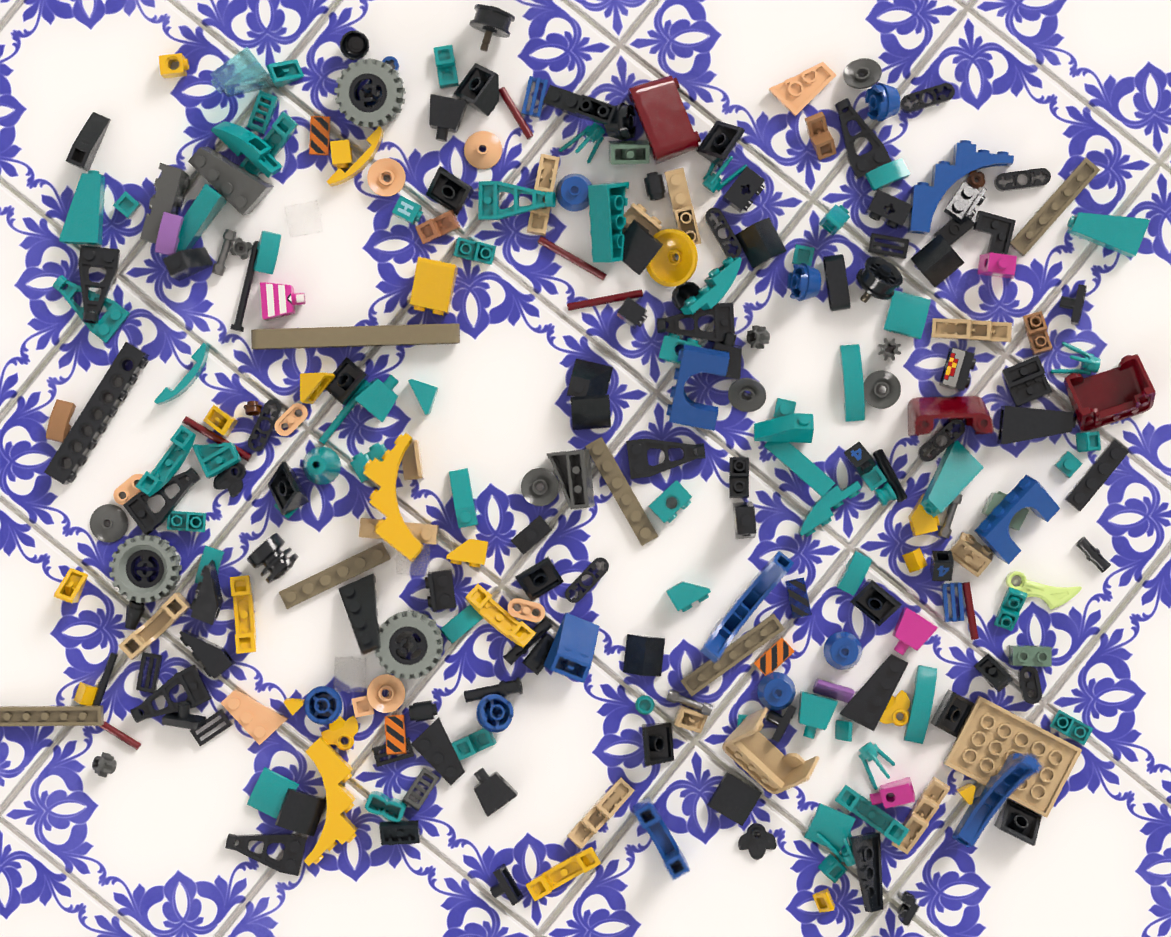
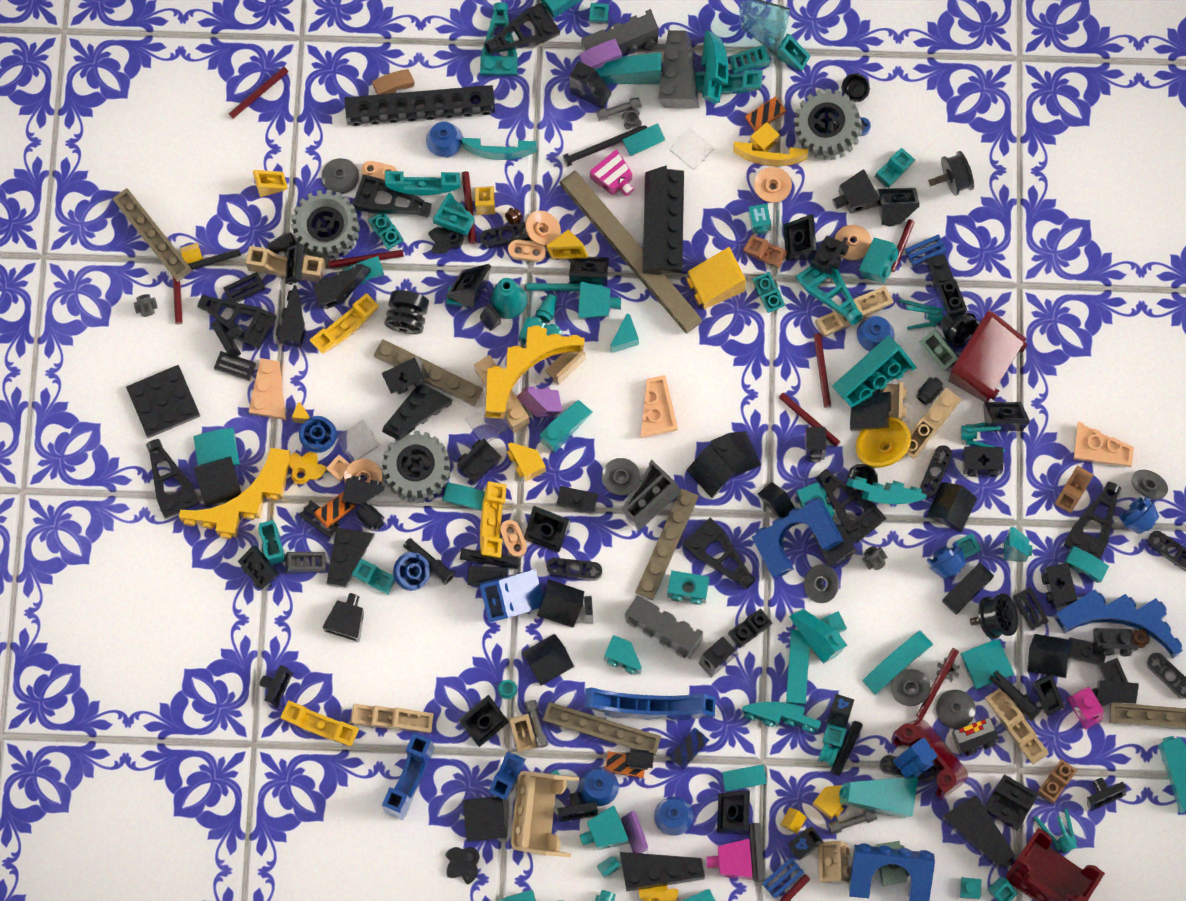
camera: 55 degrees right, 15 degrees down
(142, 415) = (444, 139): none -> blue cone
(161, 620) = (294, 264): none -> black tile
(197, 556) = (353, 260): none -> dark red bar
(197, 807) = (163, 401): none -> black plate
(282, 385) = (545, 222): none -> light nougat dish
(319, 606) = (412, 367): none -> black brick
(326, 492) = (490, 317): none -> black slope
(351, 291) = (663, 221): none -> black slope
(354, 441) = (547, 309): none -> teal cone
(398, 706) = (359, 492): none -> black slope
(431, 505) = (541, 402): none -> medium lavender slope
(481, 179) = (829, 254): none -> black bracket
(505, 414) = (658, 409): none -> light nougat wing
(516, 141) = (879, 260): none -> teal brick
(607, 611) = (561, 603): none -> black slope
(631, 596) = (588, 609): none -> black tile
(652, 377) = (776, 500): none -> black slope
(689, 545) = (663, 627): none -> dark grey wedge
(716, 758) = (507, 776): none -> blue brick
(781, 645) = (639, 759): none -> black brick
(895, 366) = (937, 683): none -> dark red bar
(912, 368) = (953, 718): none -> dark grey dish
(918, 607) = (756, 852): none -> dark grey axle
(946, 433) = (916, 759): none -> blue brick
(958, 311) = (1022, 701): none -> black pin
(968, 287) = (1048, 694): none -> black slope
(1006, 232) = (1117, 691): none -> black slope

